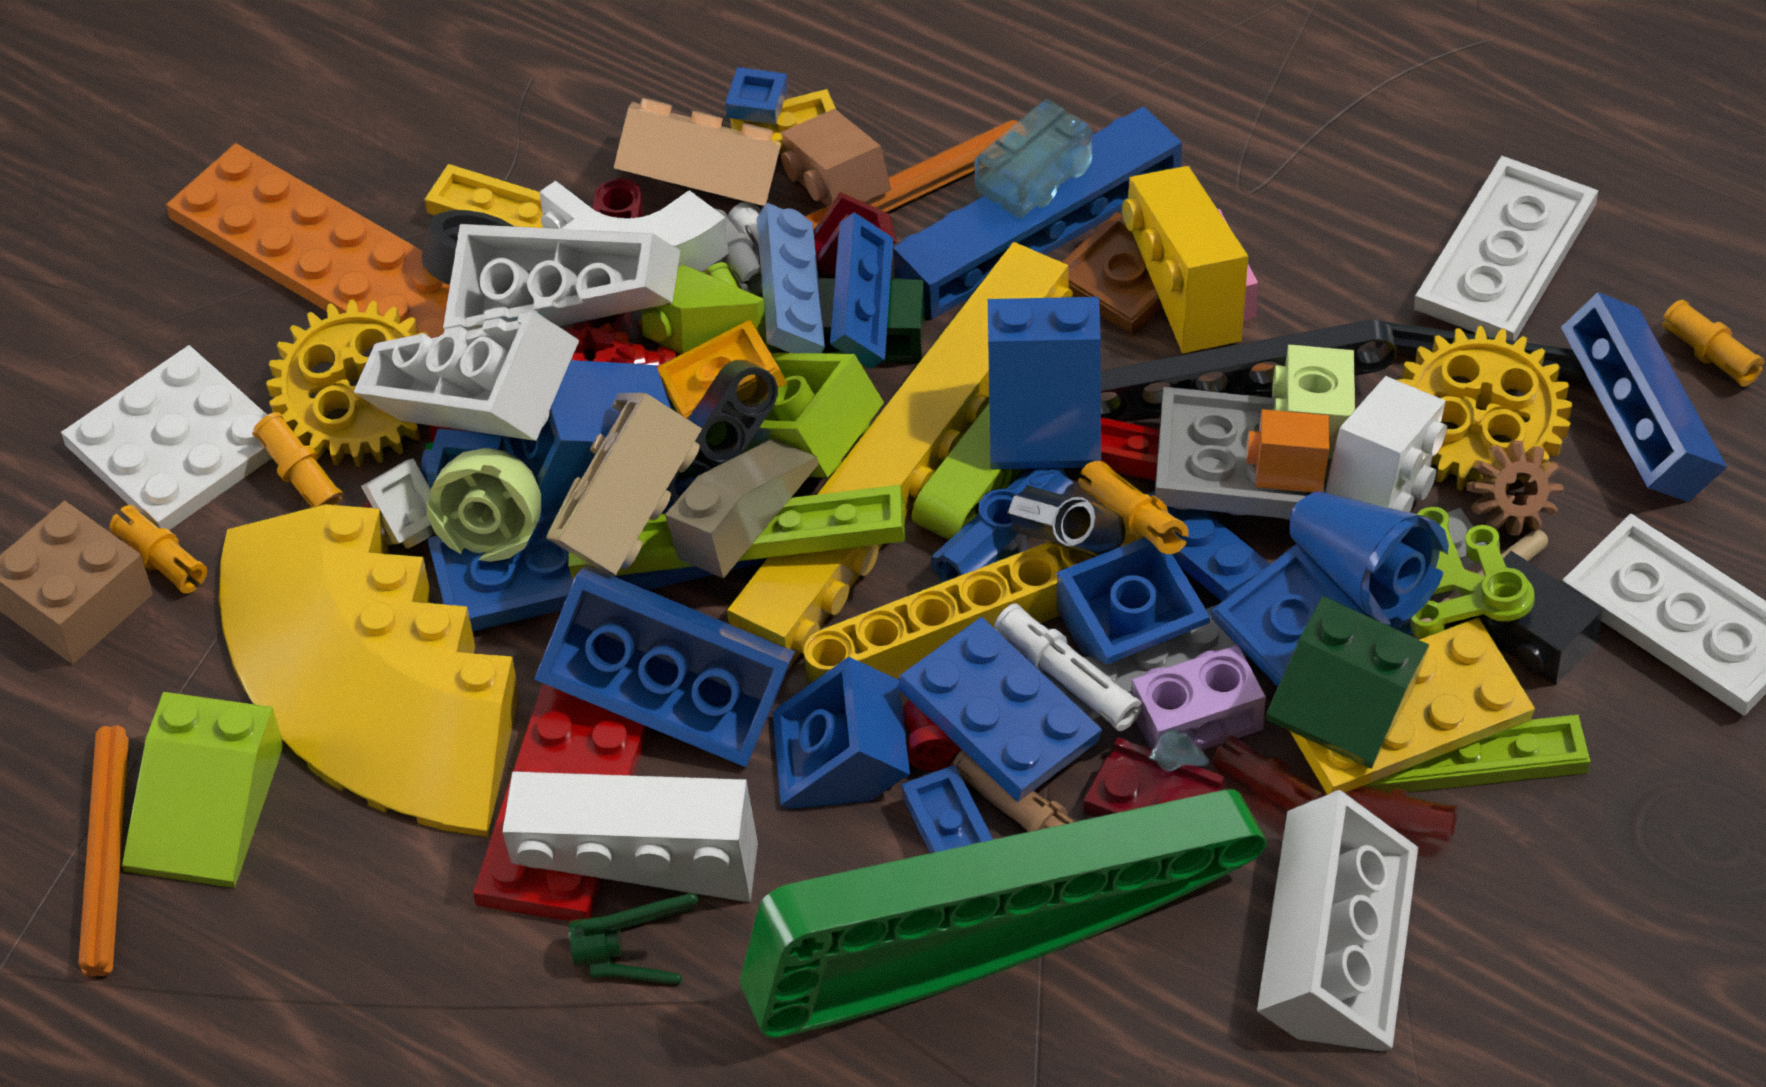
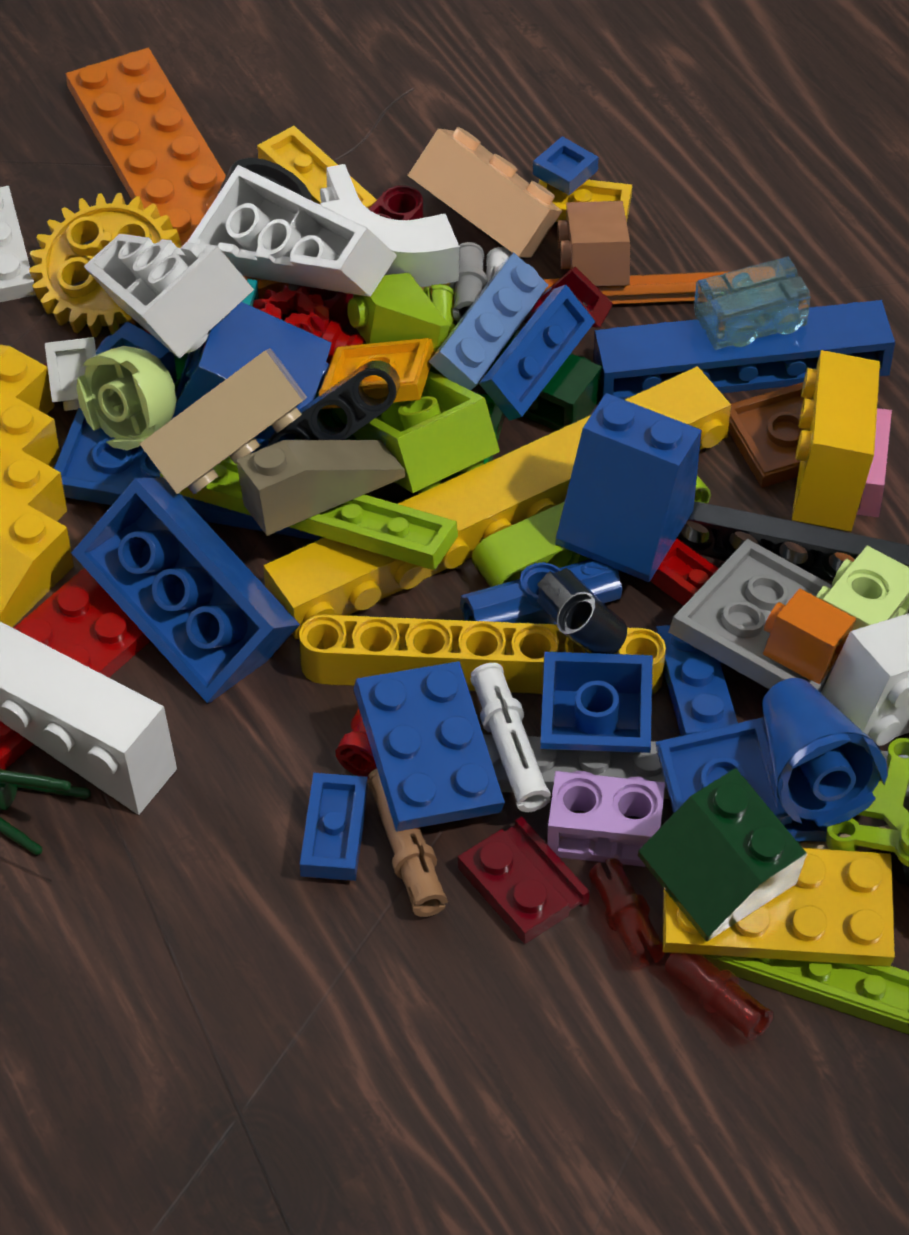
camera: 25 degrees right, 0 degrees up
(296, 461) = (22, 307): light orange pin -> none
(841, 738) = (292, 713): blue slope -> none
(971, 911) = (298, 906): green beam -> none
(1140, 513) = (644, 632): light orange pin -> none
(1177, 749) = (556, 848): clear light blue piece -> none
(1338, 926) = (602, 1068): white slope -> none

